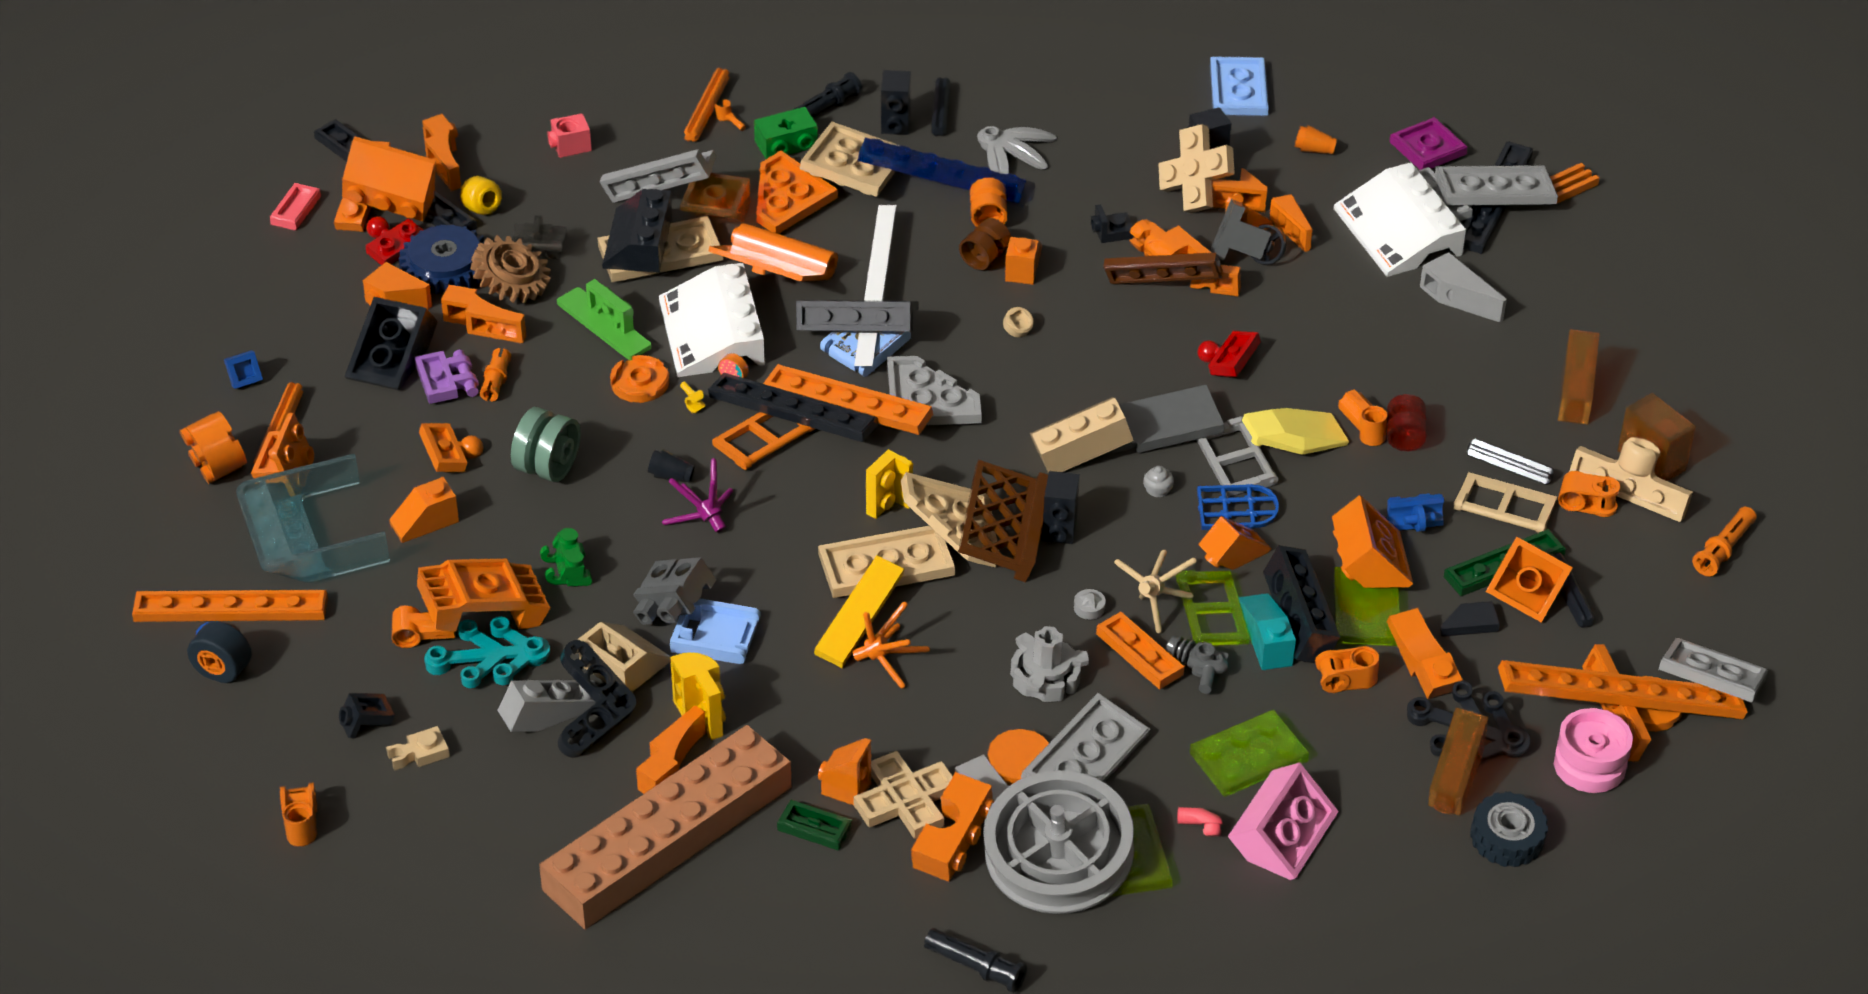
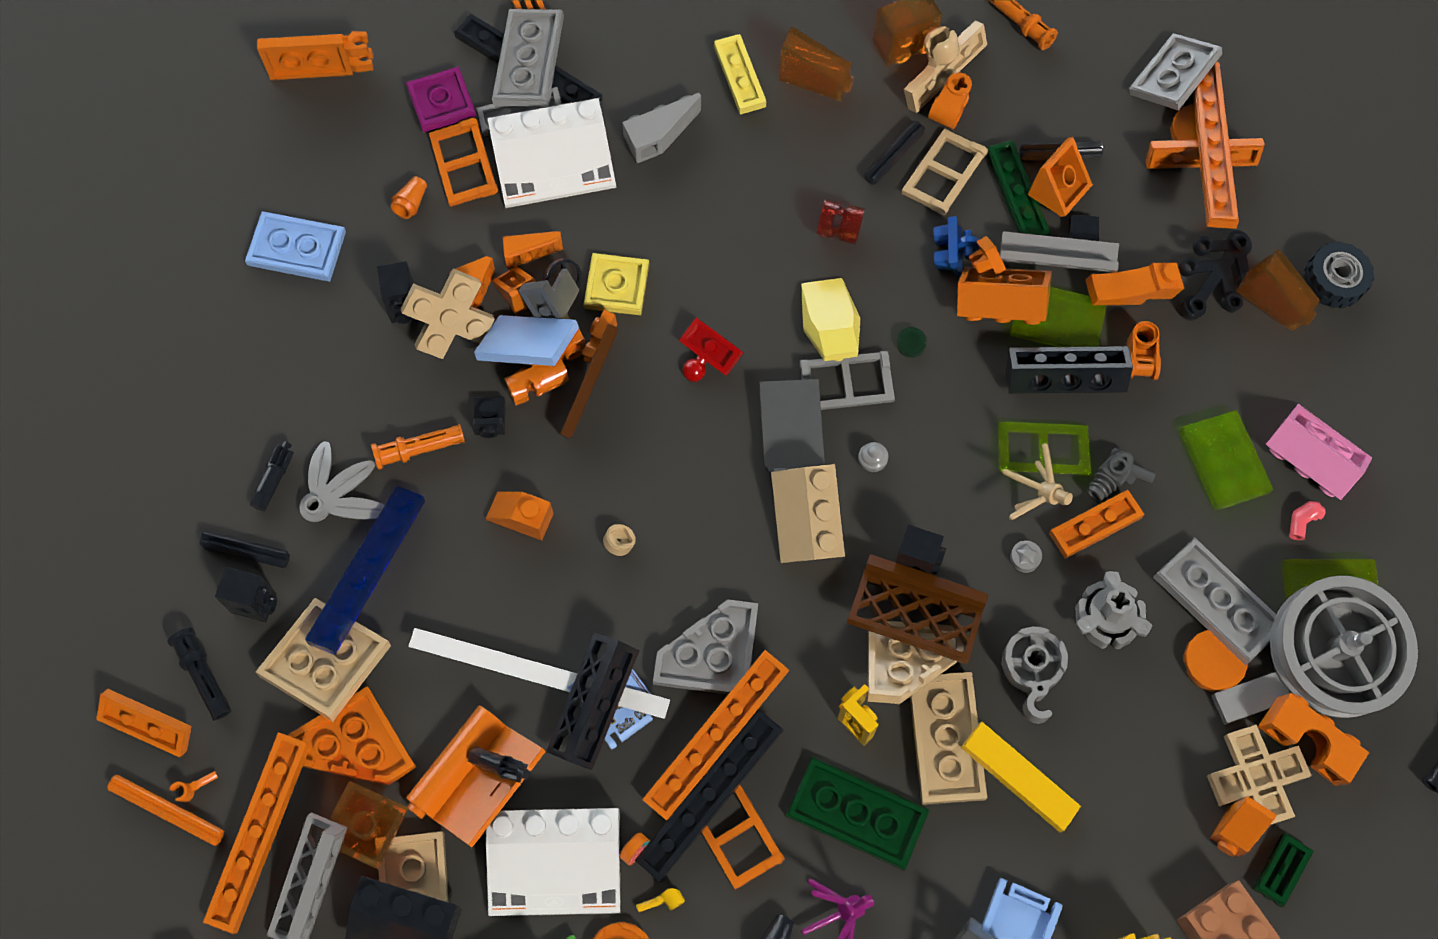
camera: 80 degrees left, 25 degrees up
(725, 147) = (257, 833): none -> orange plate
(774, 77) = (143, 722): none -> orange plate
(783, 256) = (498, 764): none -> black piece
(785, 132) = (241, 713): green brick -> none
(799, 513) = (857, 813): none -> dark green tile
(877, 646) = (1069, 767): orange plant -> none
(972, 612) = (1030, 678): none -> light grey piece
(985, 243) = (501, 551): reddish brown wheel -> none
(988, 200) = (429, 531): orange wheel -> none
(1010, 108) = (272, 475): none -> black piece
(1062, 177) = (403, 449): none -> orange pin
(1190, 224) = (526, 340): none -> light blue tile
(1232, 544) = (975, 409): orange slope -> none
(1248, 498) = (923, 407): blue window -> none
(1268, 631) = (1082, 406): teal slope -> none
(1280, 288) = (616, 284): none -> light yellow tile
(1296, 499) = (911, 342): none -> clear green tile
(1360, 161) = (474, 193): none -> orange window
(1367, 418) = (818, 255): orange piece -> none
(1405, 526) = (987, 257): none -> orange tile
(1431, 51) = (315, 55): none -> orange tile
(1437, 588) = (1059, 252): none -> light grey fence
(1546, 336) = (740, 74): none -> light yellow plate
(1593, 750) = (1267, 185): bright pink wheel -> none

